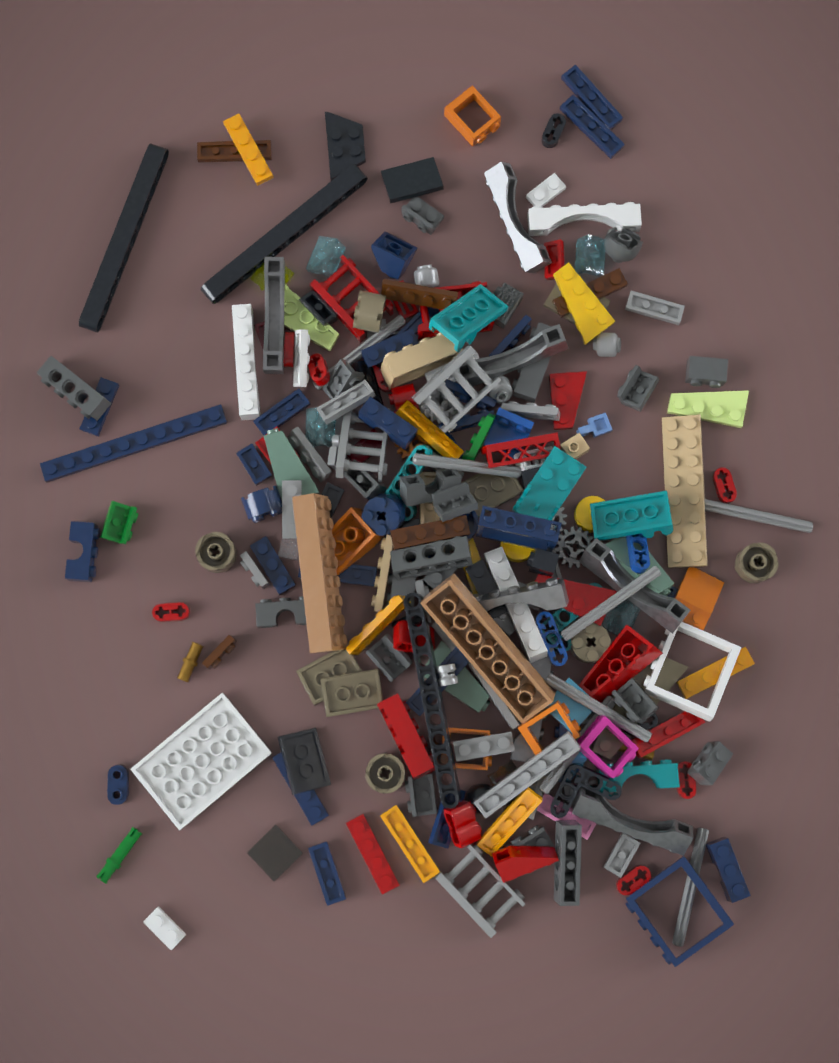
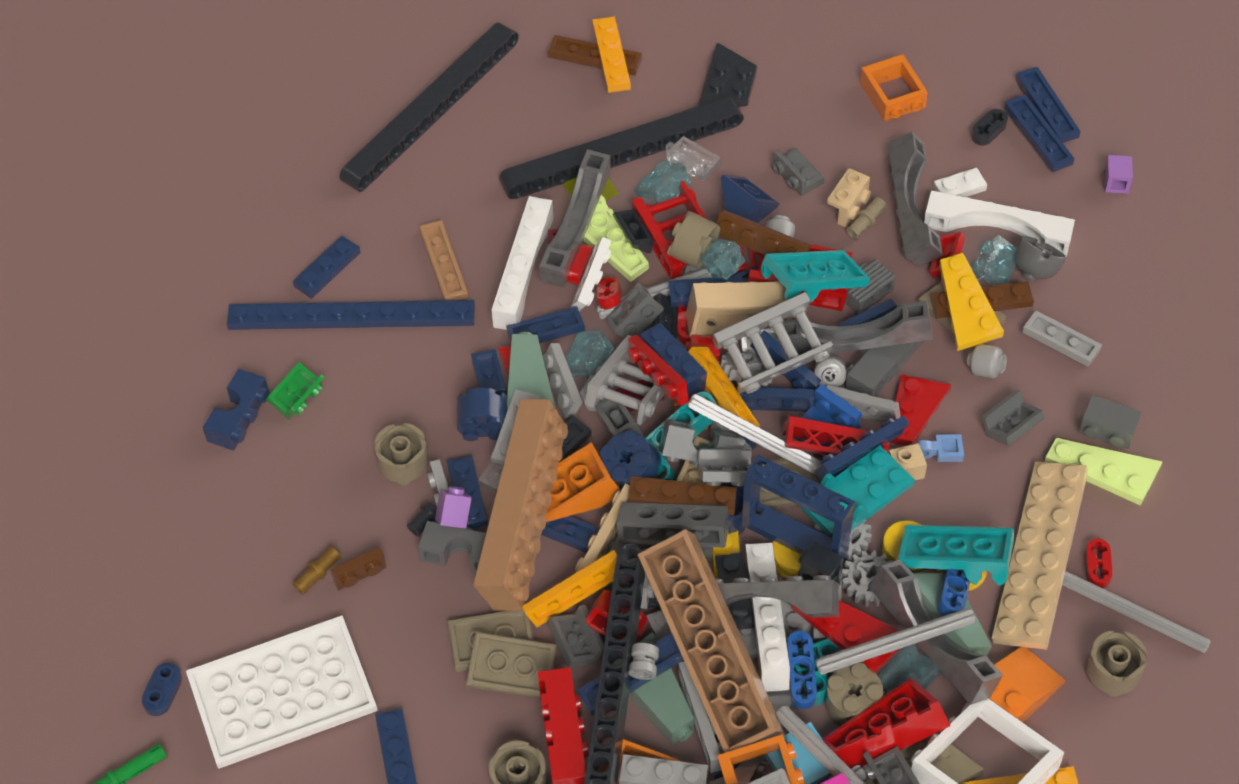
camera: 20 degrees right, 25 degrees down
(96, 403) = (304, 234): dark grey brick -> none
(172, 616) = (316, 510): red beam -> none
(185, 375) = (443, 261): none -> medium nougat tile
(250, 597) = (426, 514): none -> black pin
(271, 589) = (453, 507): none -> medium lavender brick
(304, 761) = (415, 729): black tile -> none
(340, 227) = (696, 159): none -> clear bracket
(345, 402) = (619, 330): light grey plate -> none
(385, 442) = (658, 370): none -> red plate
(396, 322) = (723, 259): none -> clear light blue brick
(412, 180) = (797, 132): black tile -> none
(467, 229) = (849, 195): none -> tan bracket
(478, 439) = (793, 406): green plate -> none
(486, 243) = (866, 218): none -> dark tan pin
(540, 458) = (854, 452): none -> dark blue plate
(659, 148) = (1118, 174): none -> medium lavender brick

